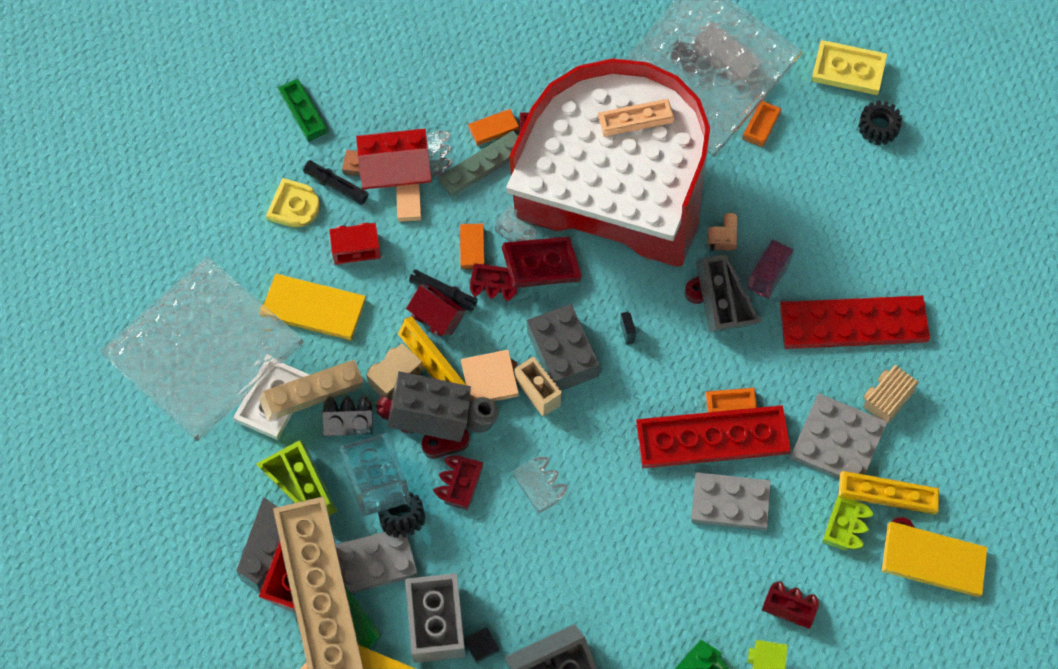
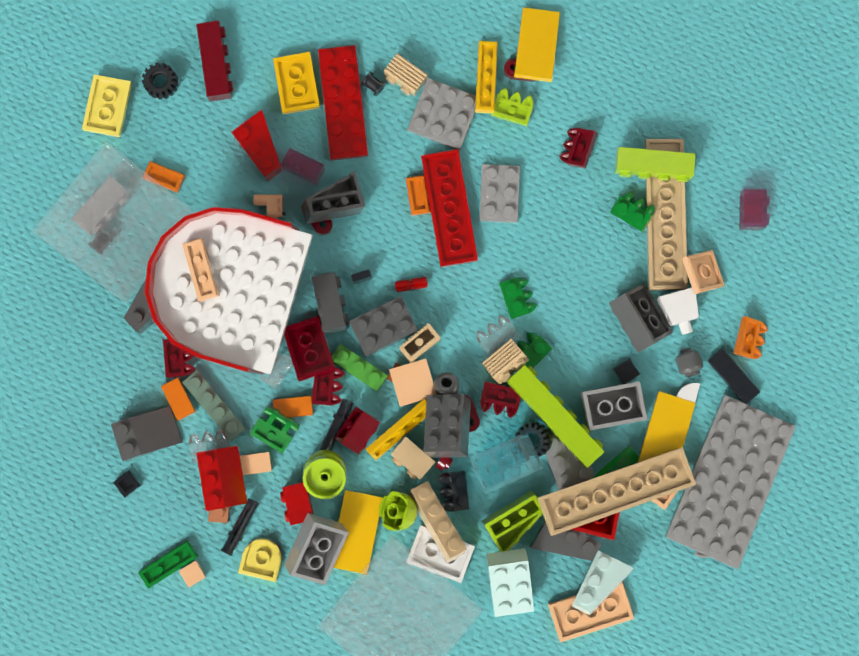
camera: 95 degrees left, 20 degrees up
(174, 575) = (574, 623): none -> light nougat tile
(208, 580) = (601, 580): none -> light aqua wedge
(224, 468) = (510, 582): none -> light aqua brick
(288, 133) = (192, 573): none -> light nougat tile
(297, 253) = (316, 549): none -> light grey brick
(330, 348) = (398, 511): none -> lime cylinder
(385, 269) = (324, 474): none -> lime wheel
(400, 73) = (127, 484): none -> black tile
(428, 540) = (555, 416): none -> lime brick
(441, 218) = (272, 434): none -> green plate
(455, 90) = (146, 433): none -> dark grey slope
(506, 486) = (505, 361): none -> tan brick
(514, 320) = (359, 367): none -> bright green plate
(516, 526) = (535, 350): none -> green plate
(591, 512) = (516, 298): none -> green plate
(596, 288) = (330, 303): none -> dark grey wedge
(615, 391) = (406, 285): none -> red piece
(799, 221) = (258, 145): none -> red wedge
(878, 269) = (296, 83): none -> yellow plate
(878, 356) = (373, 83): none -> black bush
(905, 179) = (214, 61): none -> dark red brick

